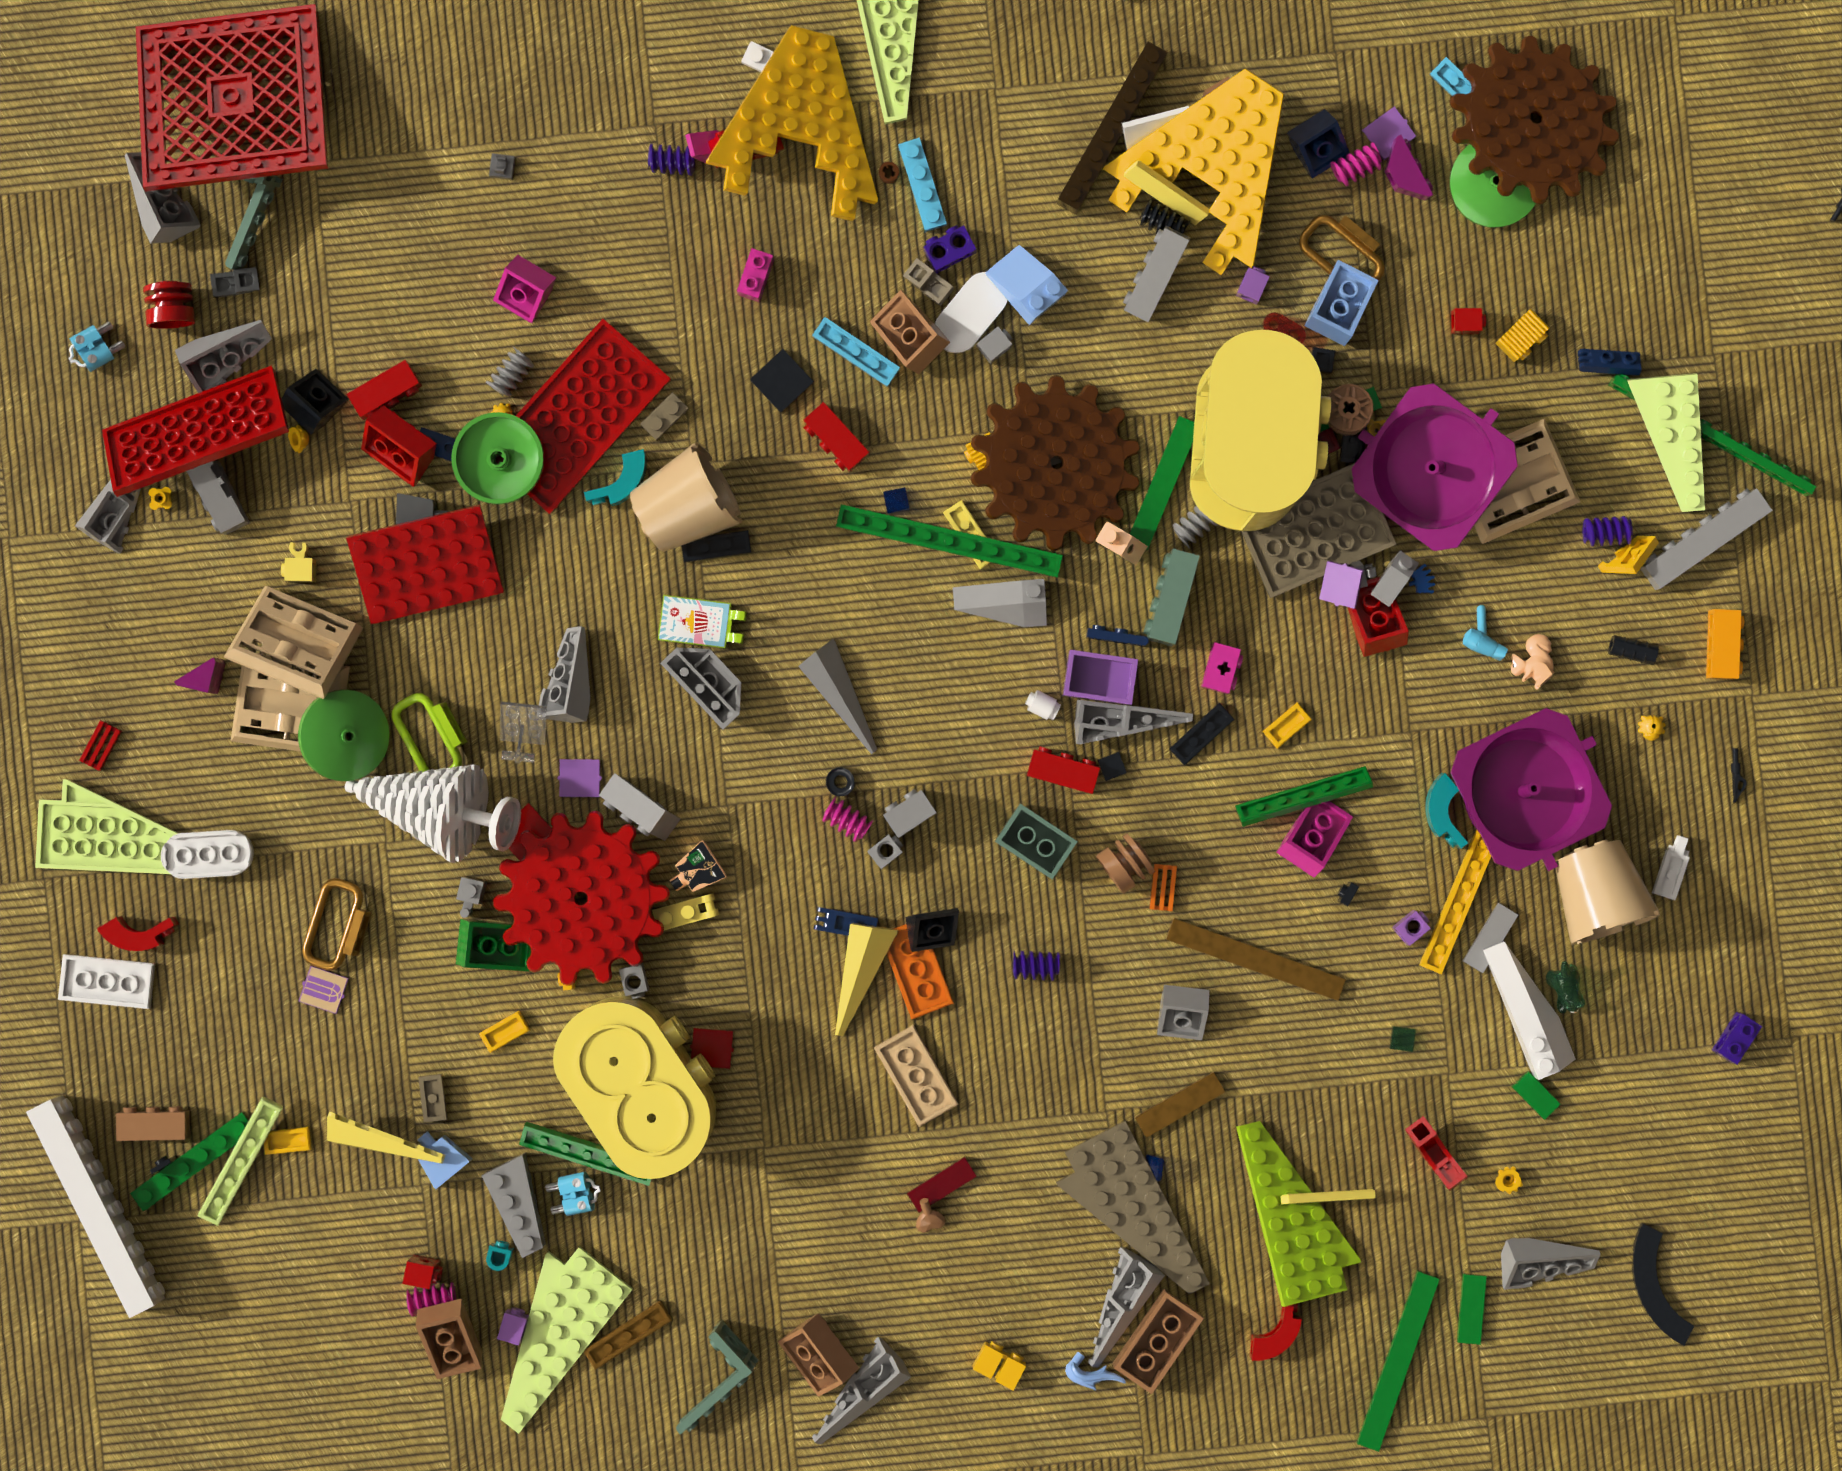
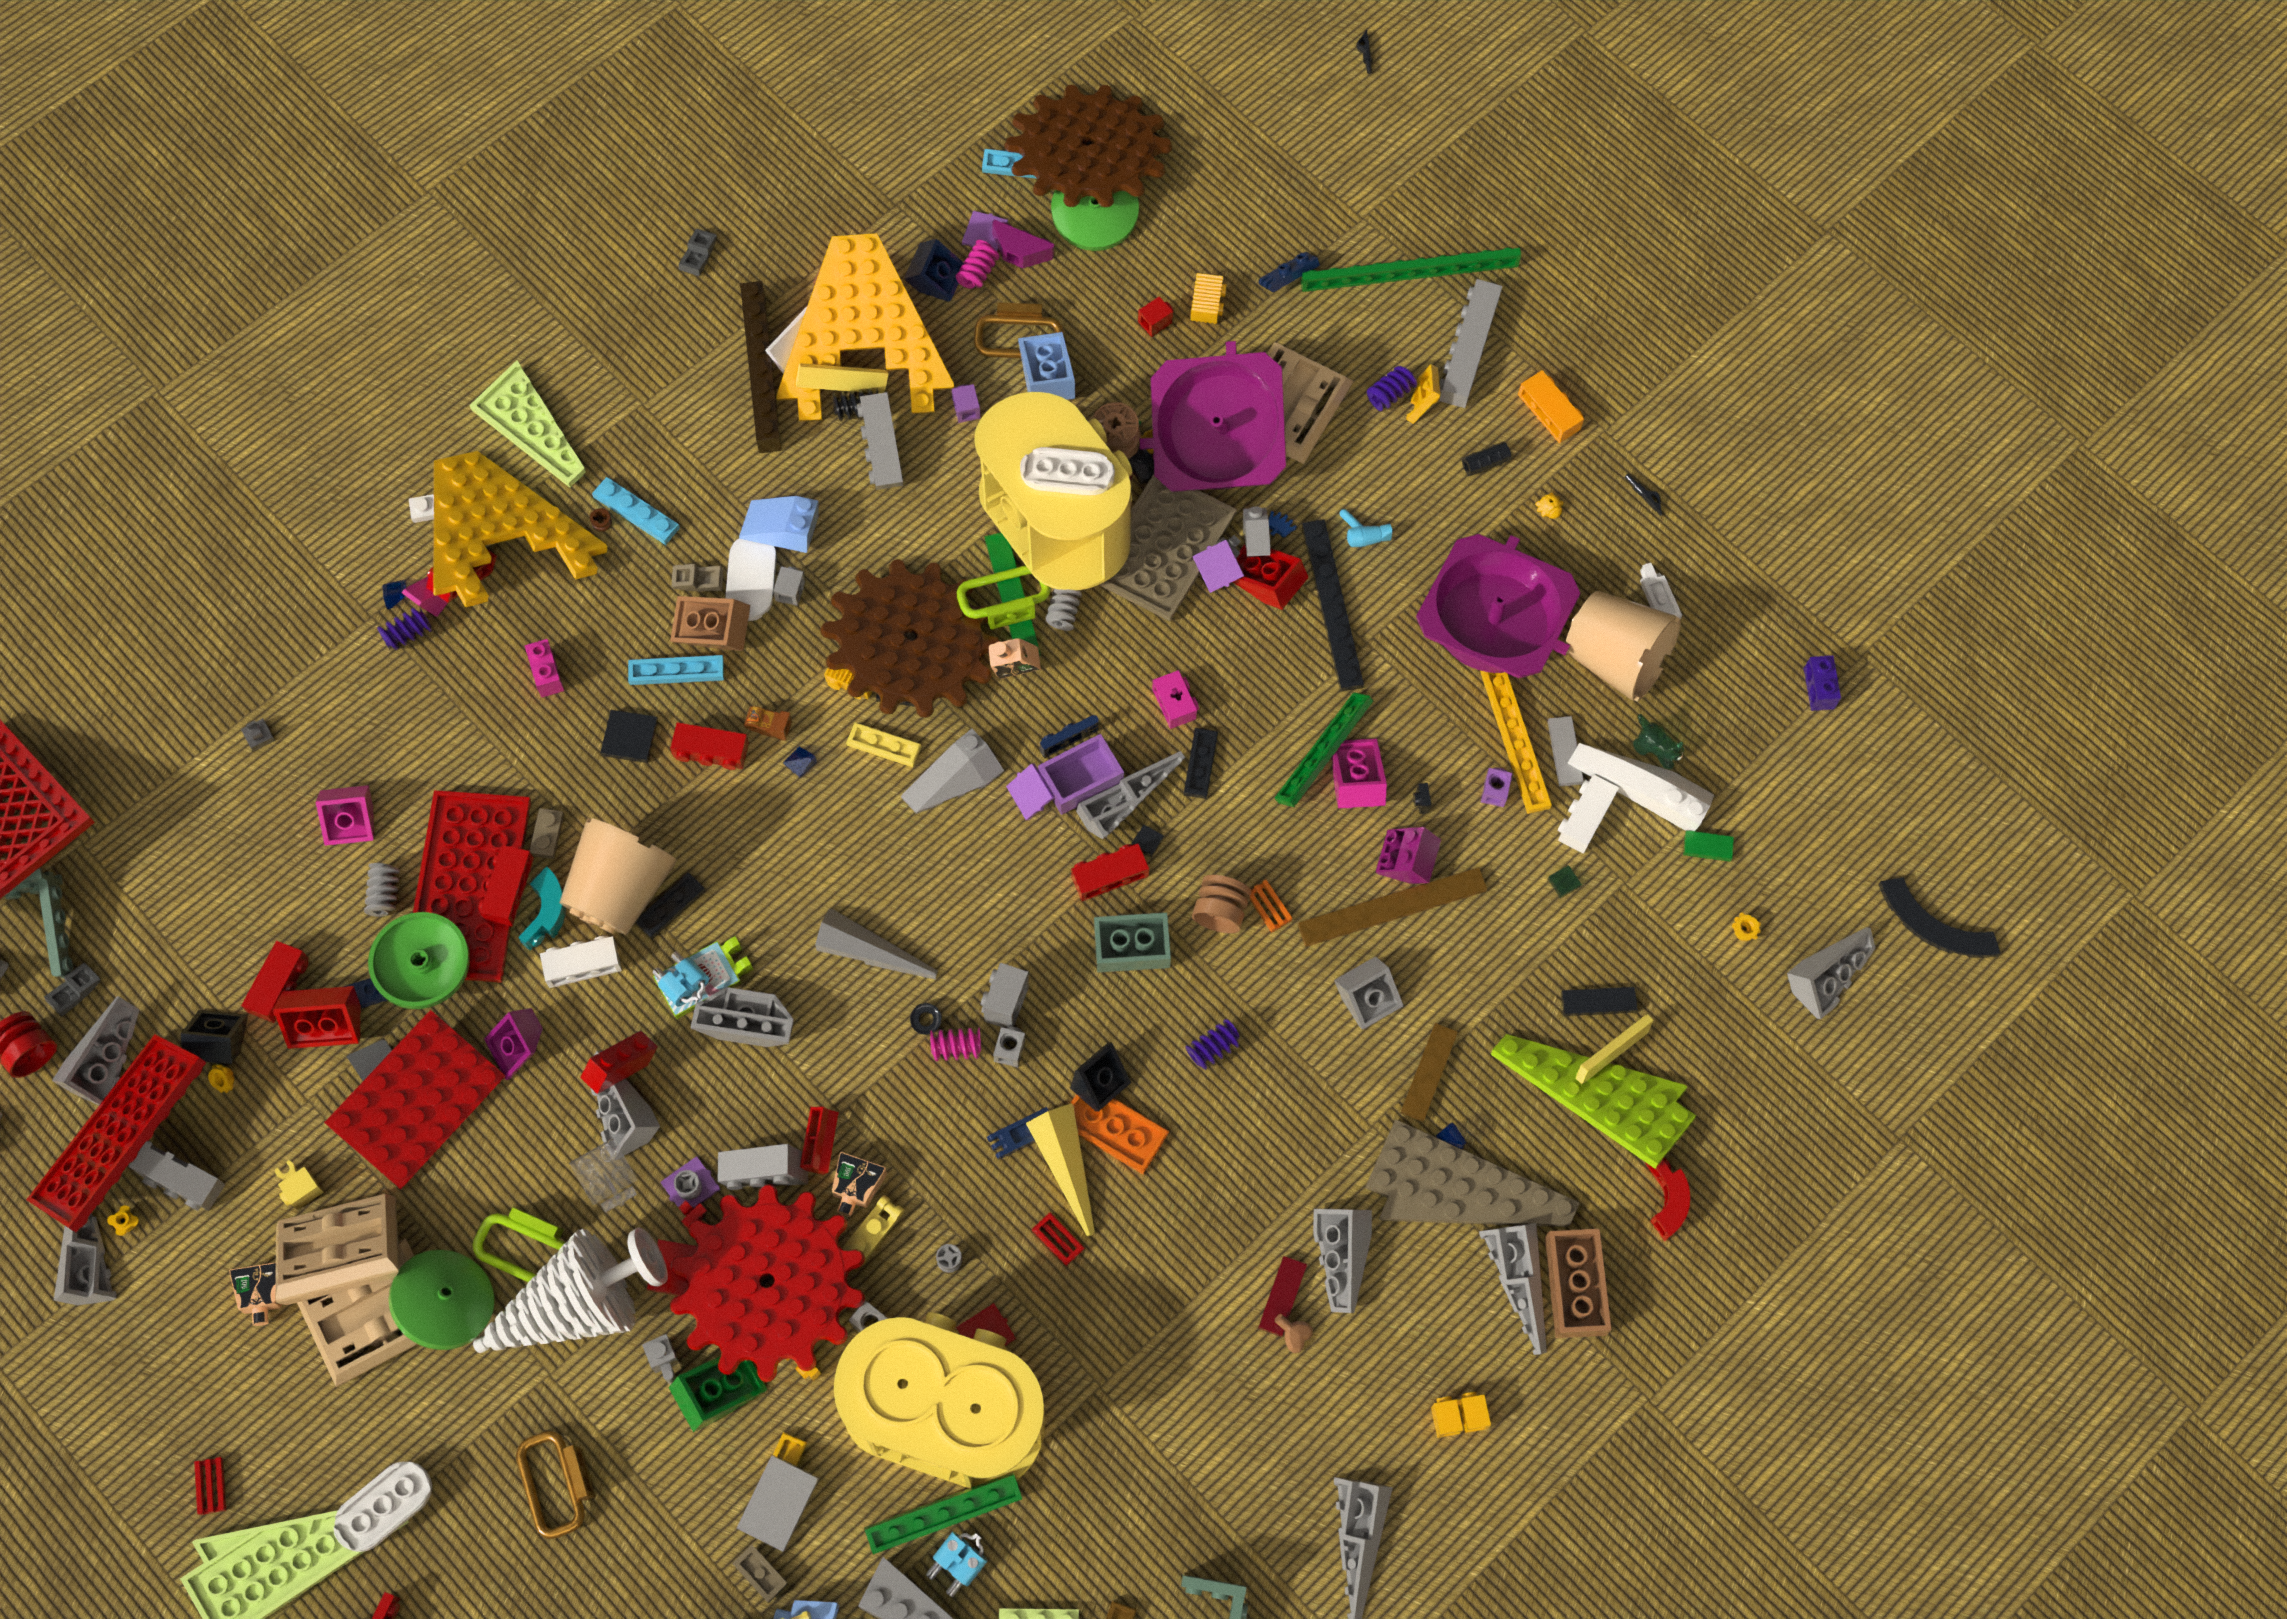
camera: 45 degrees left, 20 degrees down
(204, 677) = (269, 1346): magenta slope -> none
(220, 626) = (255, 1291): none -> black torso
(323, 989) = (583, 1553): piece -> none
(479, 1059) = (778, 1503): none -> light grey tile
(528, 572) = (514, 1040): none -> magenta slope
(564, 804) = (691, 1213): none -> red tile
(573, 778) = (687, 1180): none -> light grey wheel
(589, 651) = (618, 1062): none -> red brick
(602, 442) = (506, 885): none -> red brick
(618, 542) = (580, 961): none -> white brick
(682, 619) = (683, 981): none -> medium azure piece
(685, 118) = (393, 593): none -> clear blue slope
(694, 817) = (819, 1140): none -> red piece
(723, 979) = (948, 1253): none -> light grey wheel
(813, 1020) = (1072, 1254): none -> red tile
(818, 1355) = (1294, 1535): medium nougat slope -> none
(895, 450) = (768, 722): none -> dark orange leg
(916, 1075) = (1185, 1219): tan tile -> none
(949, 541) = (868, 759): green plate -> none
(952, 254) = (701, 542): dark purple brick -> none
(1014, 1184) = (1344, 1247): none -> light grey wedge
(1042, 705) = (1050, 832): white brick -> none
(1051, 661) = (1030, 791): none -> medium lavender piece
(1089, 1379) = (1546, 1366): light blue piece -> none
(1145, 497) = (1007, 612): none -> lime bar
(1172, 597) = (1089, 669): sand green brick -> none
(1267, 438) = (1067, 471): none -> white tile
(1287, 725) = (1264, 707): yellow tile -> none
(1299, 930) = (1408, 855): none -> magenta slope
(1350, 1149) = (1599, 1001): none -> black tile
(1397, 1361) = (1788, 1148): green tile -> none
(1408, 680) = (1332, 605): none -> black plate
(1435, 1153) = (1669, 951): red arch -> none
(1437, 811) = (1441, 684): teal arch -> none
(1464, 1001) = (1587, 813): none -> white brick
(1471, 1308) = (1809, 1056): green tile -> none
(1539, 665) = (1423, 520): light nougat animal -> none
(1673, 422) = (1378, 279): yellowish green wing -> none

